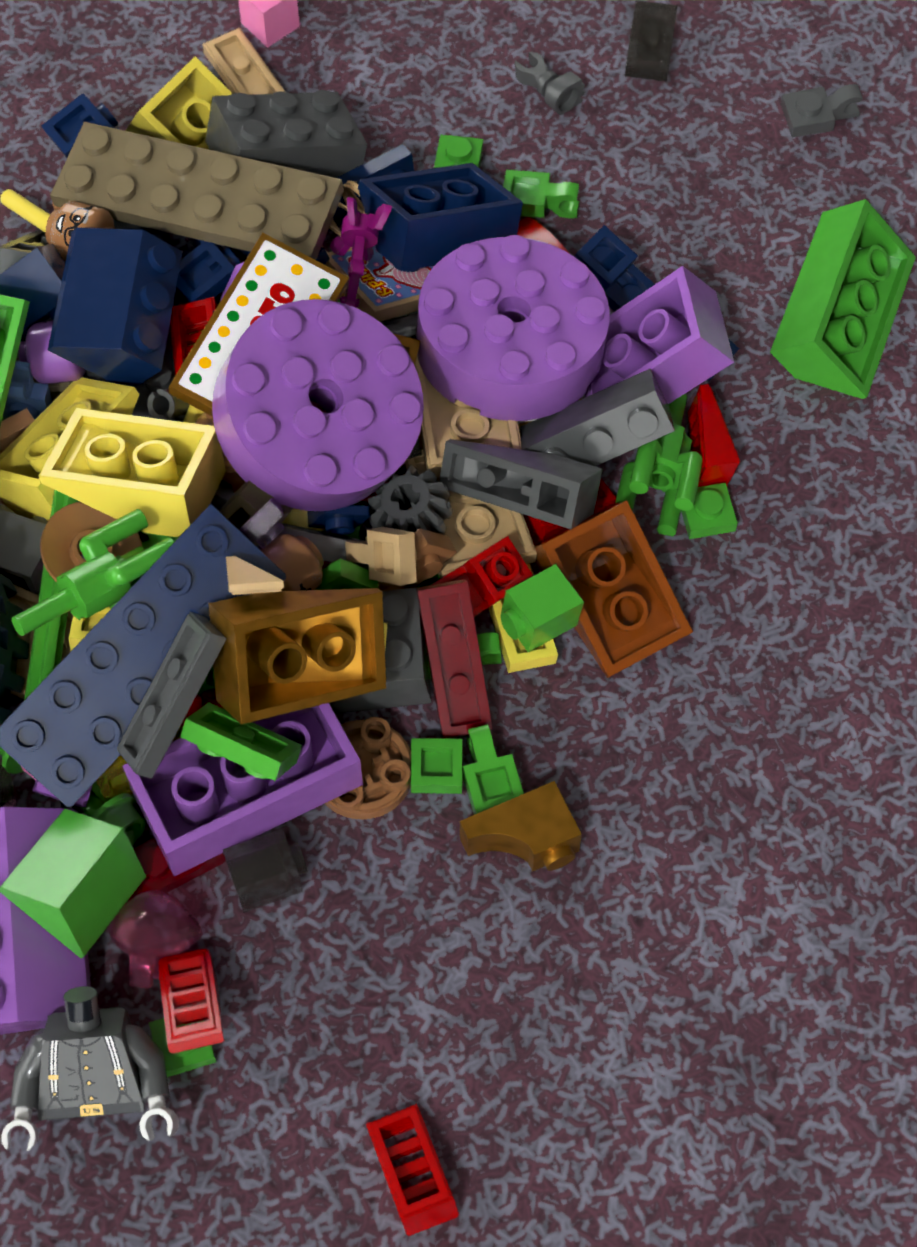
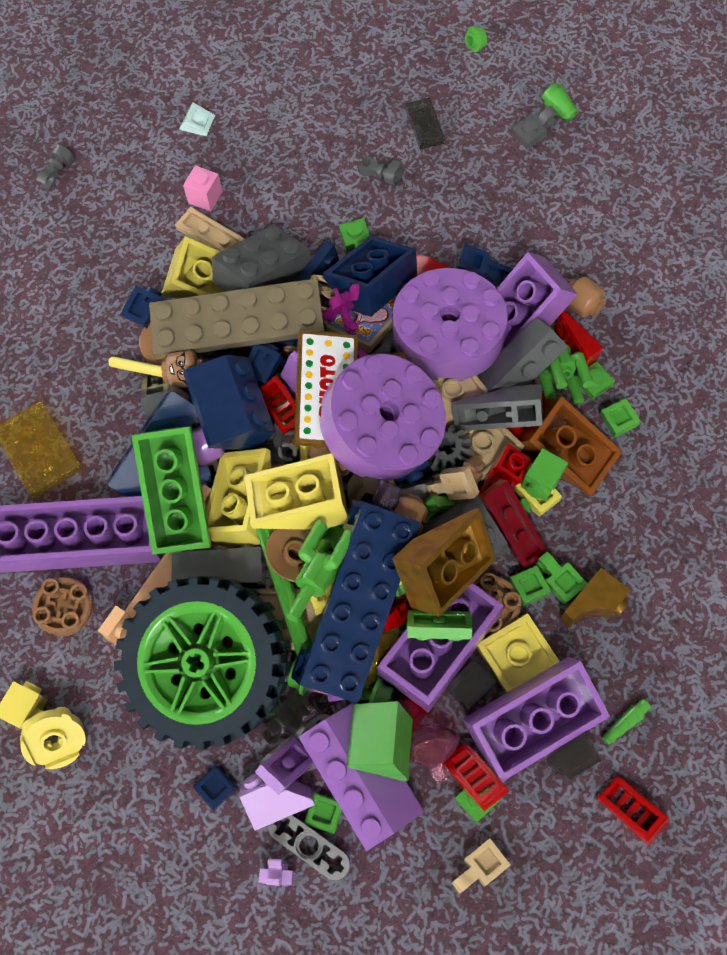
camera: 20 degrees left, 5 degrees up
(87, 1067) = (442, 838): dark grey torso -> none
(127, 1145) = (483, 864): none -> tan plate
(171, 694) = (392, 617): dark grey tile -> none
(249, 579) = (407, 536): tan slope -> none
(327, 956) = (536, 718): none -> medium lavender brick
(356, 1037) = (573, 757): none -> clear smoke brick
(361, 860) = (517, 653): none -> light yellow plate
(481, 1031) = (629, 719): none -> bright green animal
(538, 194) = (413, 237): bright green plate -> none
(715, 580) = (620, 418): none -> bright green plate
(756, 381) = (589, 298): none -> medium nougat head
(844, 301) = (605, 232): bright green slope -> none
(877, 86) = (559, 99): none -> bright green cone

